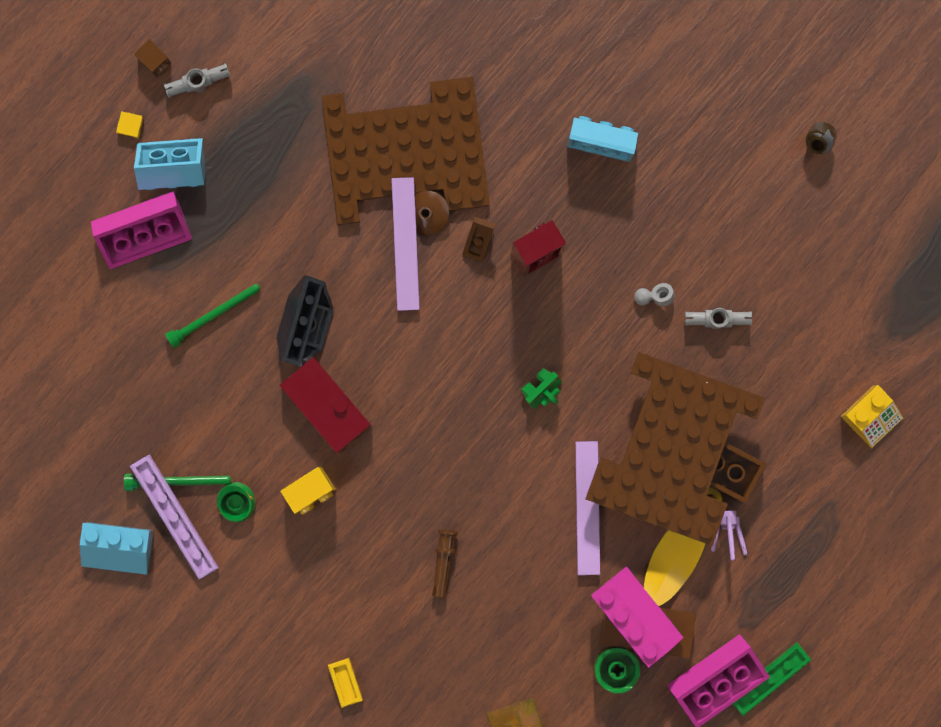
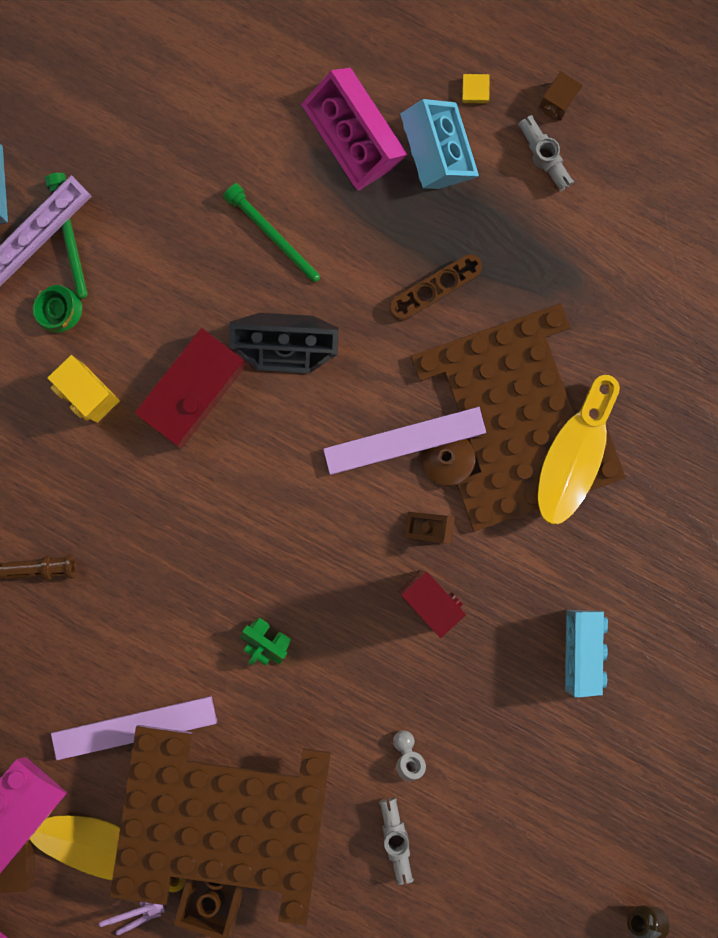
camera: 80 degrees right, 0 degrees up
(289, 191) = (438, 291): none -> reddish brown beam
(446, 111) = (576, 455): none -> yellow plant

